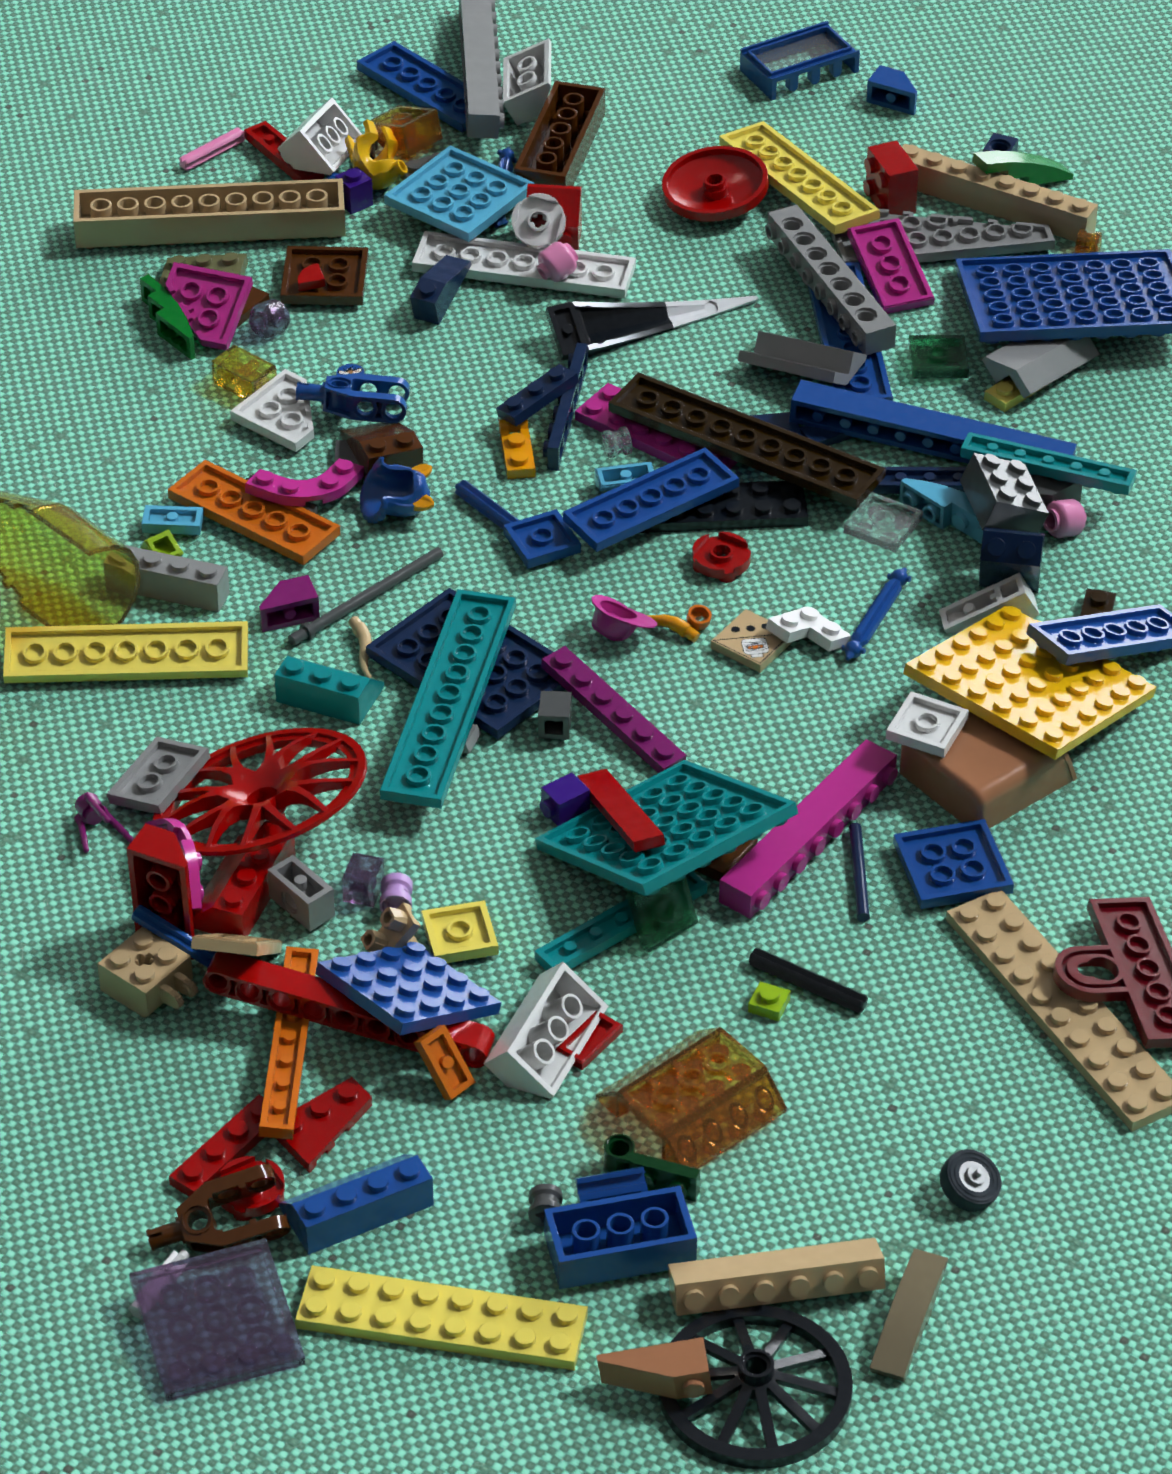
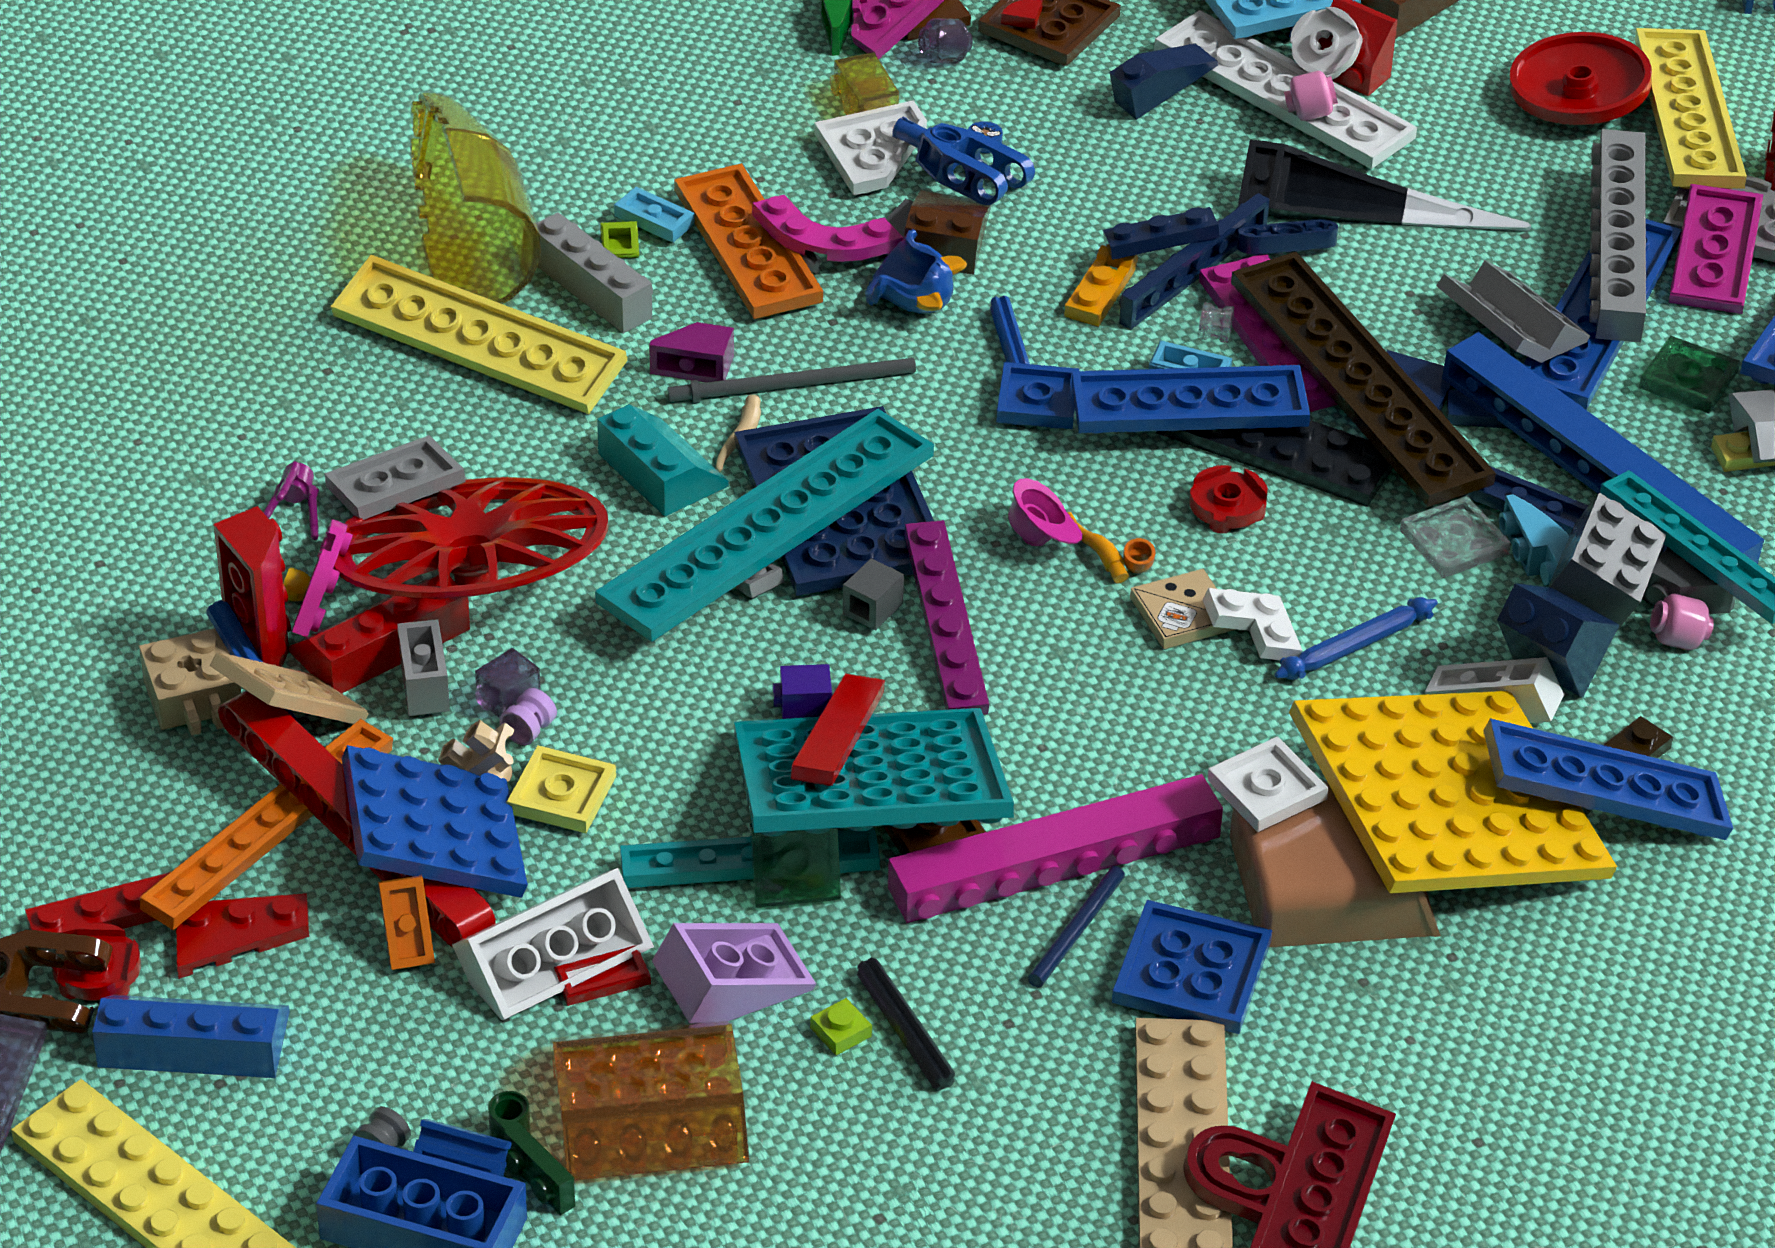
camera: 30 degrees right, 0 degrees up
(613, 366) = (1287, 237): none -> dark blue beam
(672, 998) = (729, 969): none -> lavender slope

